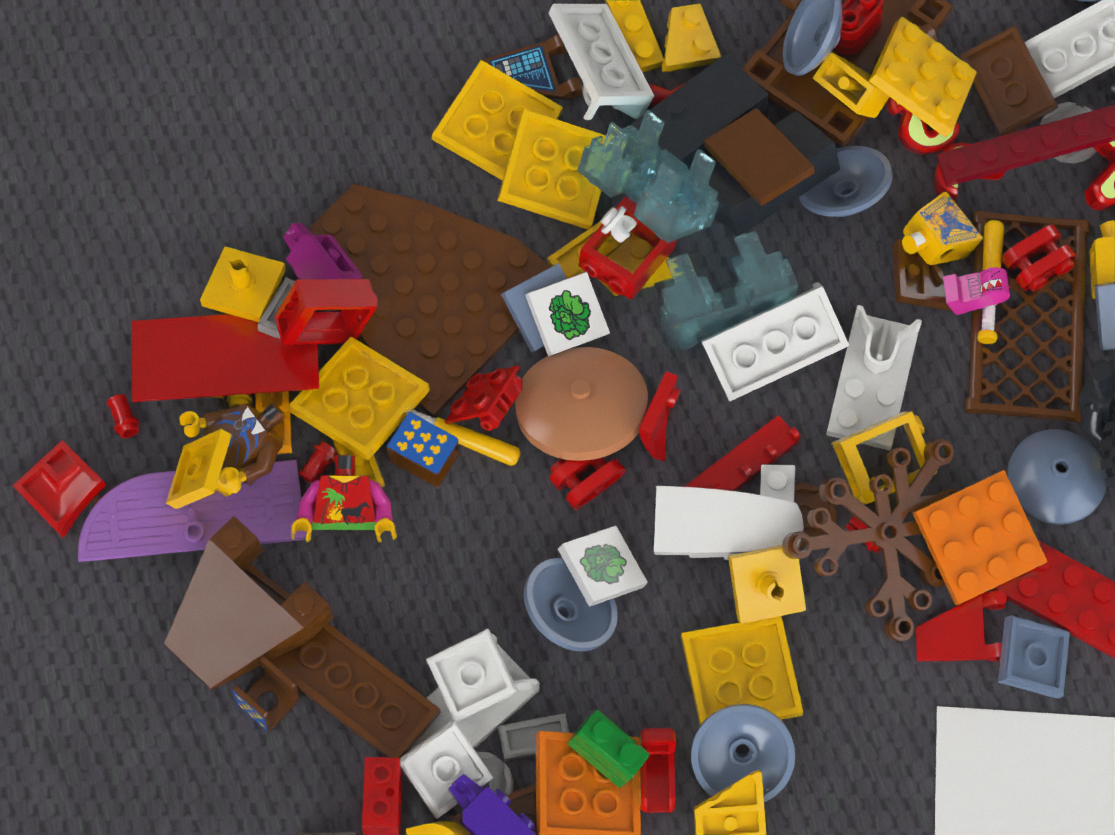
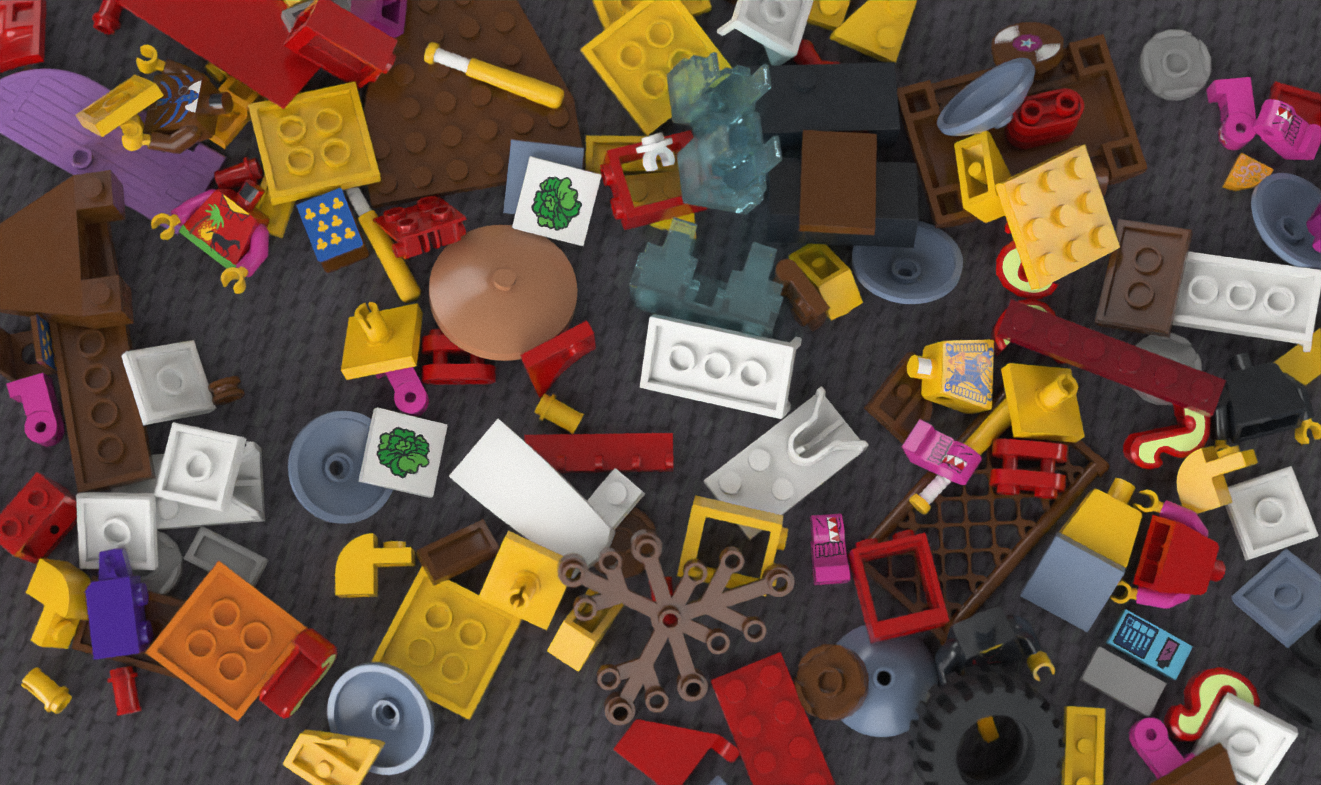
camera: 40 degrees right, 10 degrees up
(310, 731) = (44, 419): none -> dark pink leg
(392, 641) = (168, 382): none -> white tile
(437, 618) = (226, 390): none -> reddish brown bush
(459, 257) = (505, 79): none -> yellow piece
(525, 497) = (381, 340): none -> yellow tile
(559, 517) = (409, 392): none -> dark pink leg
(608, 748) = (262, 623): green brick -> none
(636, 664) = (359, 562): none -> yellow brick
(688, 460) = (558, 413): none -> yellow pin
(699, 605) = (458, 552): none -> reddish brown tile
(798, 234) = (829, 277): none -> yellow slope
(803, 253) = (807, 303): none -> reddish brown plate
(831, 593) = (579, 638): none -> yellow slope
(951, 414) = (828, 550): none -> dark pink leg
(979, 537) = (751, 686): orange plate -> none
(1013, 208) = (1042, 402): none -> yellow tile
(1036, 379) = (909, 624): none -> red window
(1037, 494) = (832, 682): none -> reddish brown tile

